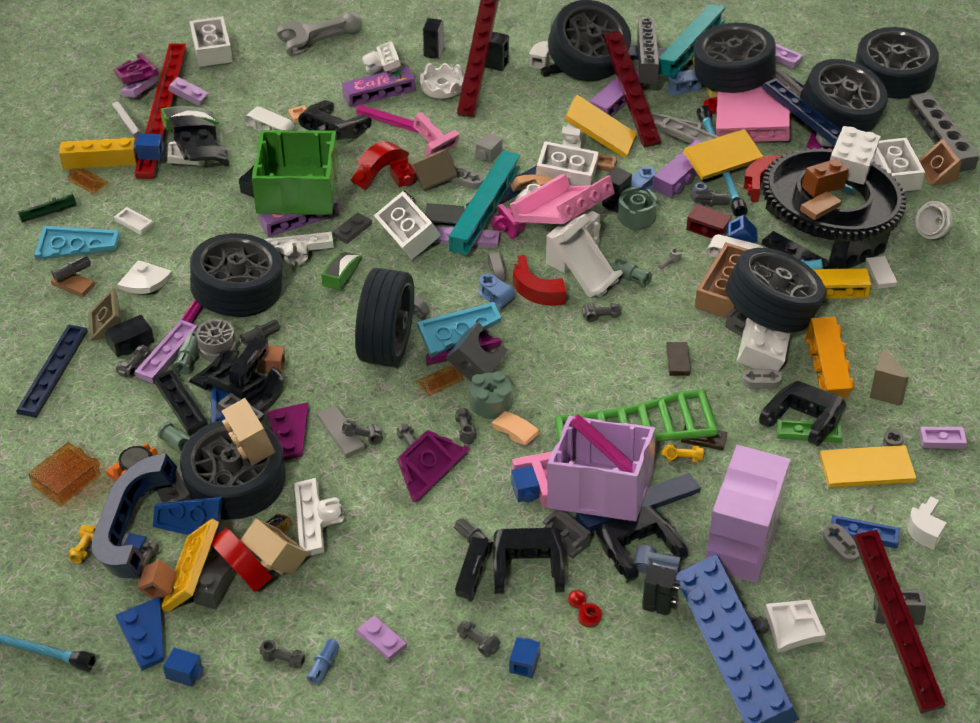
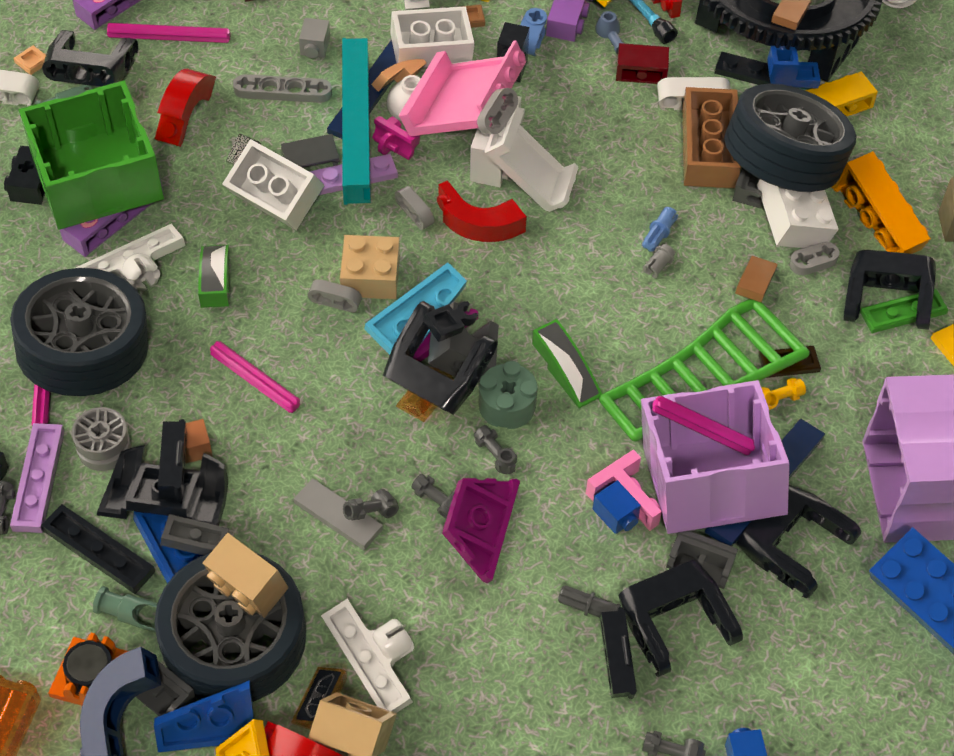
camera: 25 degrees left, 10 degrees up
(186, 355) = (69, 472): sand green piece -> none
(260, 331) = (151, 405): dark grey axle -> none
(289, 427) = (267, 532): magenta wing -> none
(334, 336) = (255, 377): none -> dark pink axle
(352, 228) = (194, 208): dark grey plate -> none
(384, 316) = (330, 334): black wheel -> none
(402, 172) = (220, 107): red brick -> none
(433, 135) = (234, 41): bright pink bracket -> none
(434, 169) = (260, 89): dark tan slope -> none
(437, 368) = (427, 382): none -> black connector
(445, 291) = (371, 265): none -> tan brick
(464, 330) = (448, 322): none -> black plate
(495, 290) = (434, 243): medium blue piece -> none
(517, 428) = (565, 430): light nougat slope -> none
(542, 388) = (566, 363): none -> slope
(566, 210) = (500, 113): none -> light grey beam
(577, 600) = (764, 646): red plate -> none
(591, 313) = (567, 234): dark grey bar -> none
(632, 272) = (585, 161): sand green piece -> none
(637, 208) = (548, 70): sand green brick -> none
(647, 347) = (663, 255): none -> light grey pin
(647, 555) = (829, 558): sand blue piece -> none
(659, 328) = (660, 228): none -> medium blue axle
(660, 589) = (863, 598): black brick -> none
(673, 257) = (621, 124): light grey hand -> none
(678, 359) = (702, 263): dark brown tile -> none
(710, 198) = (627, 28): dark grey axle -> none
(710, 378) = (756, 279): none -> medium nougat tile
(742, 229) = (690, 63): blue brick -> none
(802, 249) = (787, 70): none -> blue brick
(881, 272) = (872, 68): white tile -> none

